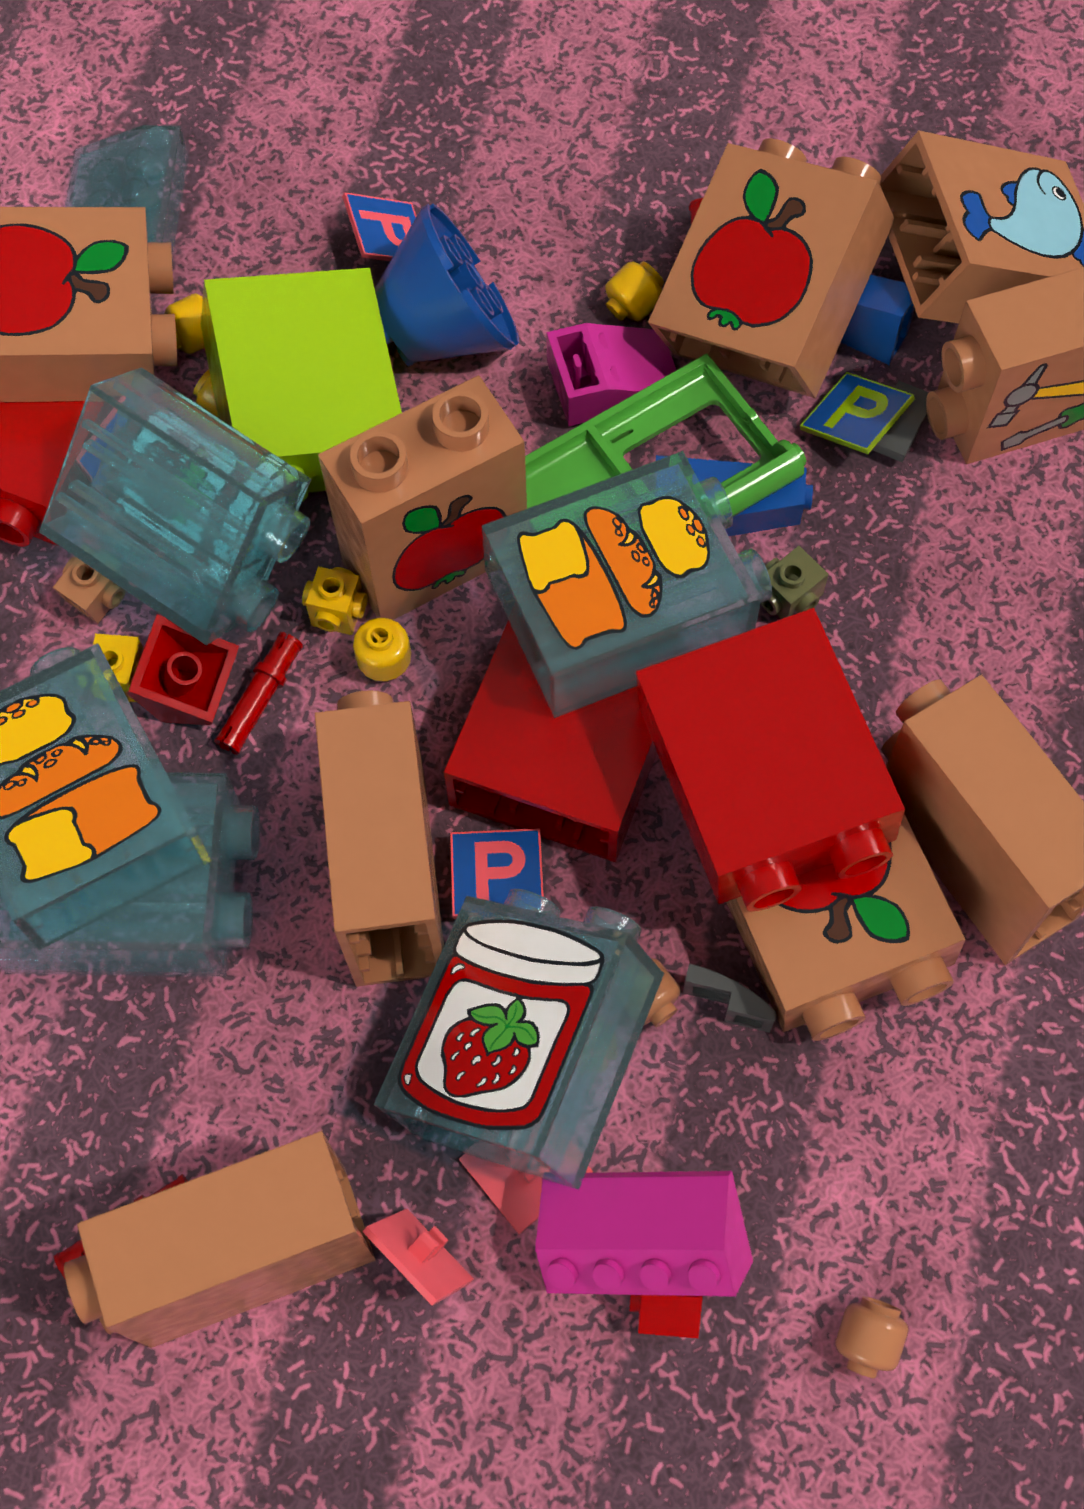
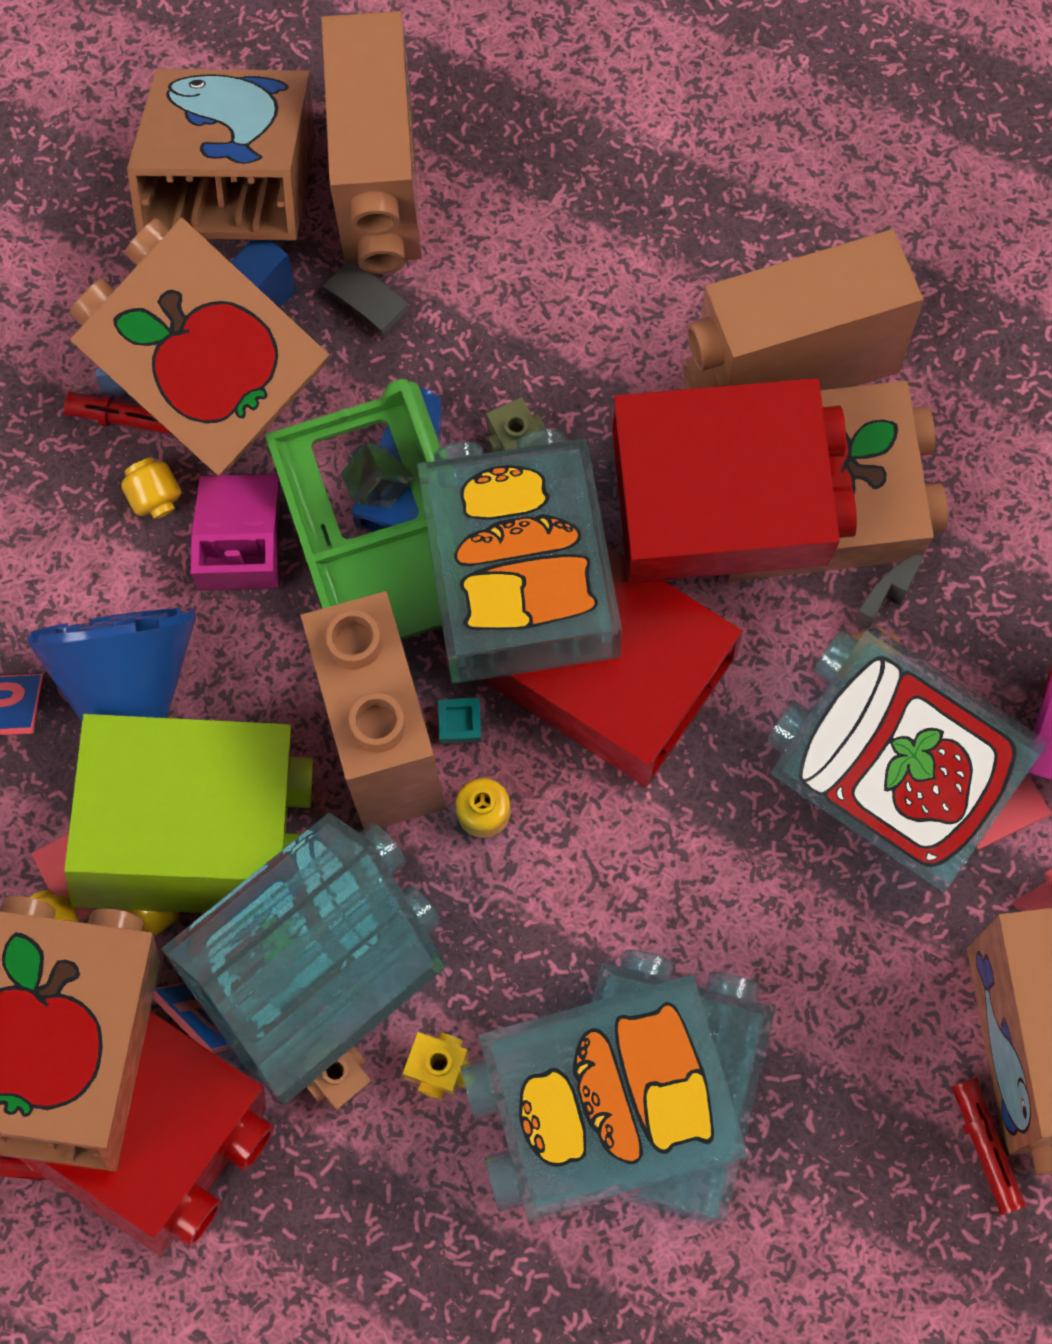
camera: 75 degrees left, 5 degrees up
(180, 675) = (463, 997): red slope -> none
(267, 678) = (492, 934): red pin -> none
(334, 600) = (430, 849): yellow brick -> none
(378, 839) = (706, 831): nougat brick -> none
(471, 611) = (459, 721): none -> teal plate
(494, 863) = (730, 755): blue piece -> none
(698, 442) = (375, 476): none -> clear smoke slope
(857, 412) = (352, 329): blue piece -> none

